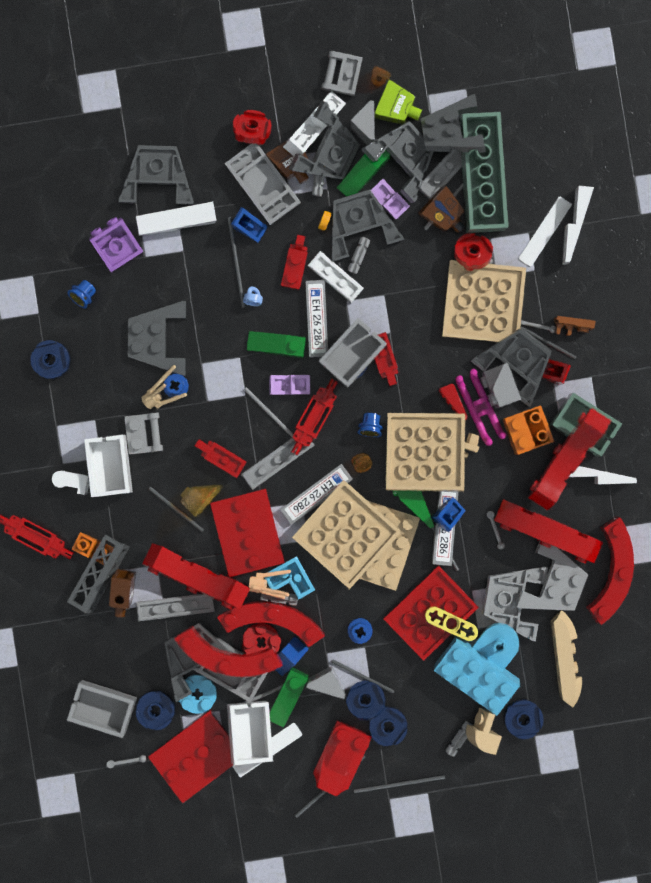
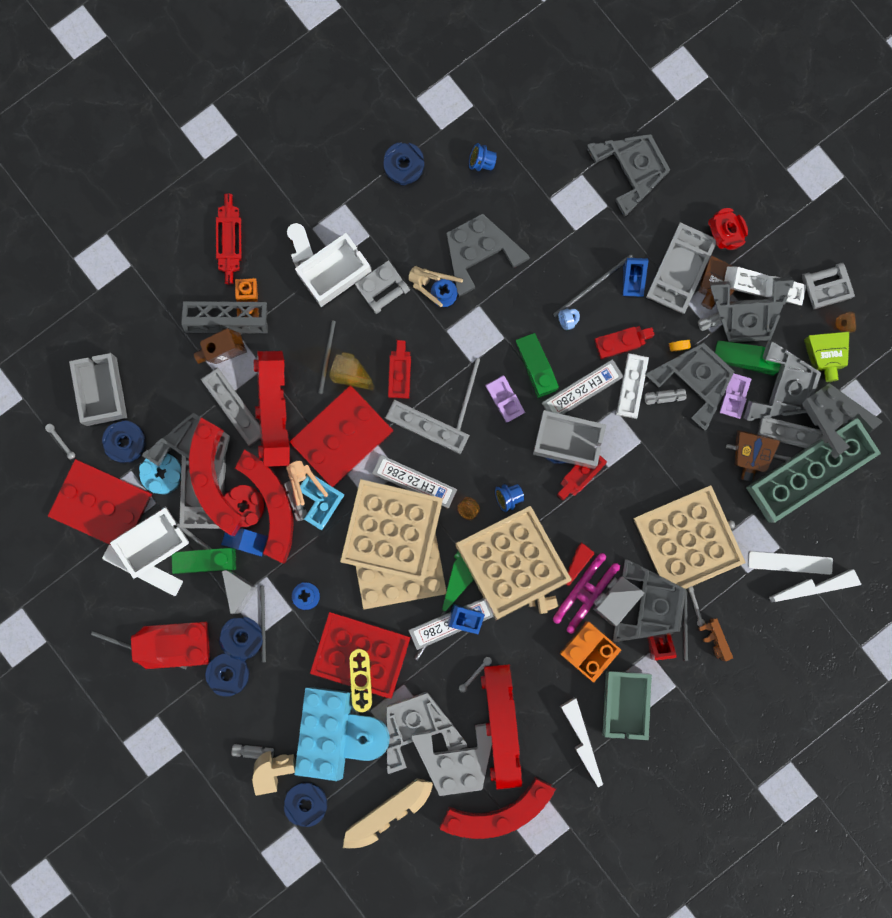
camera: 60 degrees right, 5 degrees down
(115, 243) = (546, 163): medium lavender plate -> none
(176, 218) = (601, 205): white slope -> none
(304, 434) = (465, 438): red piece -> none
(363, 123) = (795, 329): light grey slope -> none
(399, 784) = (177, 717): dark grey piece -> none
(469, 260) = (723, 508): red plate -> none
(568, 457) = (585, 704): red brick -> none

